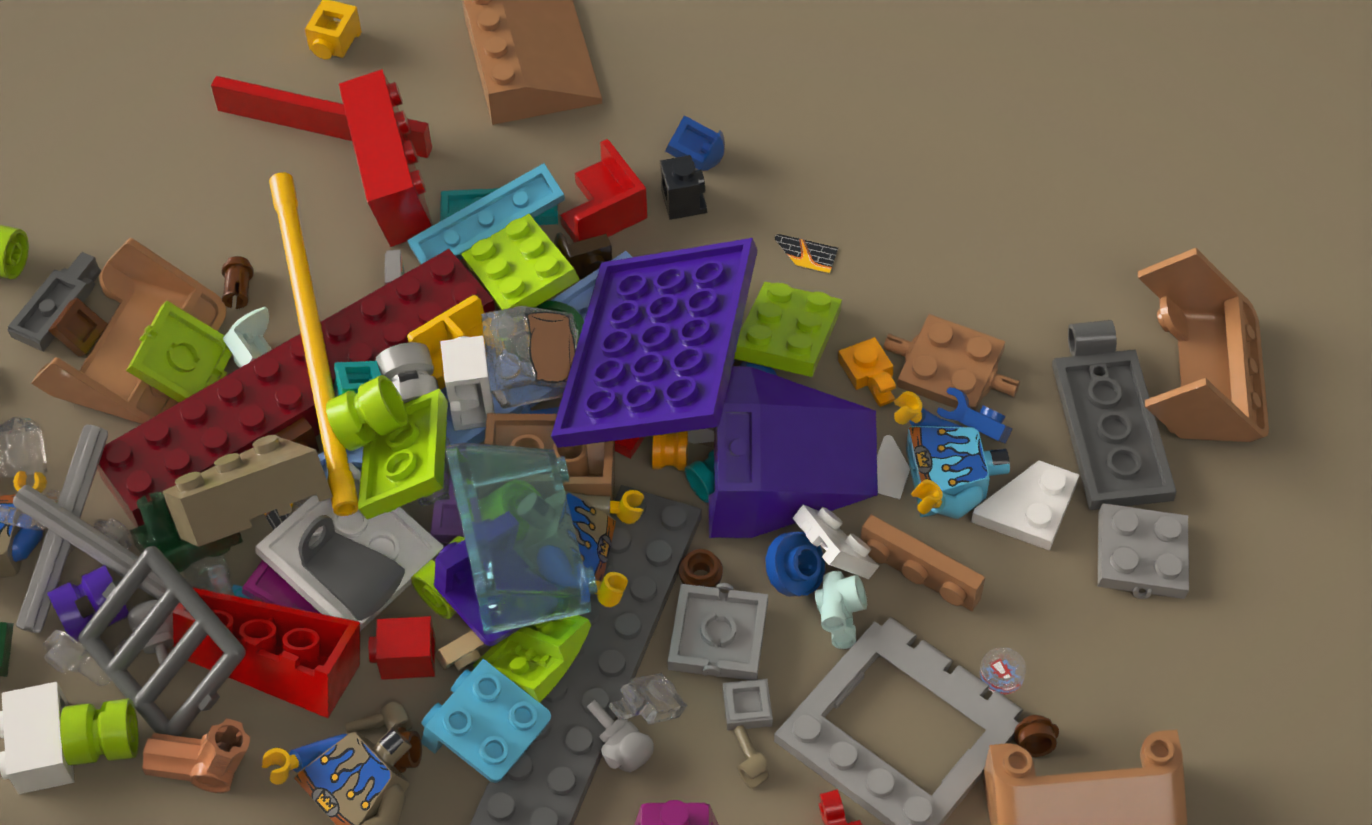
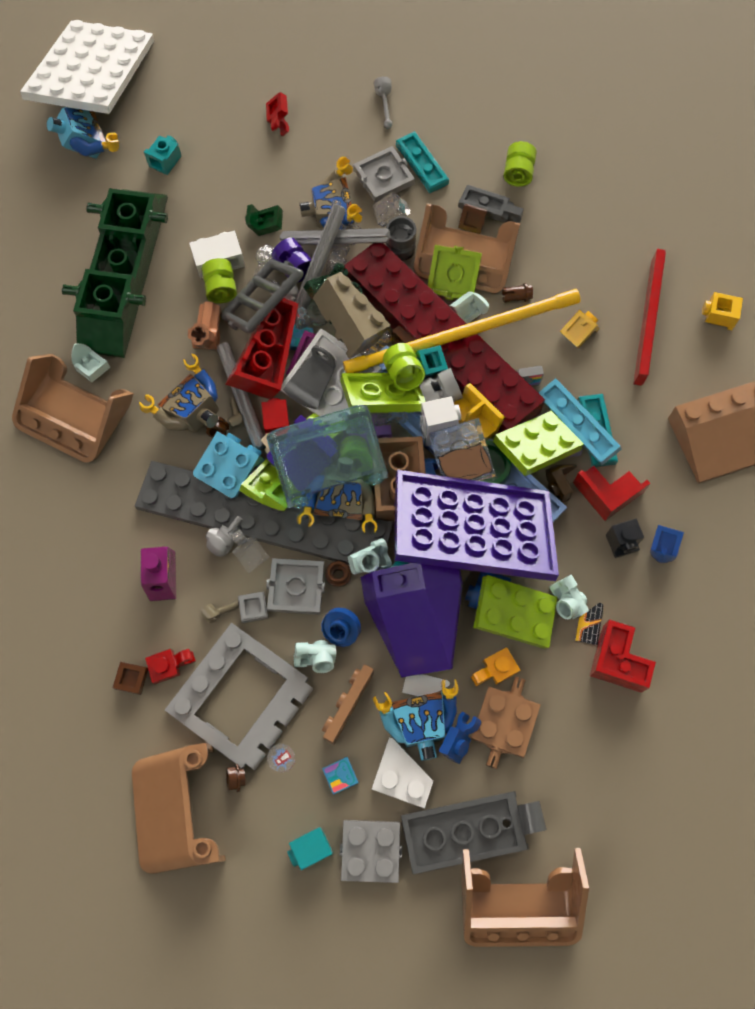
camera: 85 degrees right, 15 degrees up
(83, 410) = (402, 237): none -> dark grey wheel
(323, 203) = (580, 327): none -> yellow bracket
(349, 708) = (242, 399): none -> light grey axle
(385, 156) = (611, 351): red wedge -> none
(689, 507) = (373, 558): none -> light aqua plate
(776, 263) = (571, 601): none -> light aqua plate
(841, 550) = (353, 648): white wing -> none
(866, 220) = (616, 664): none -> red panel
(1030, 586) = (340, 775): none -> tile
(1144, 626) = (309, 849): none -> teal brick

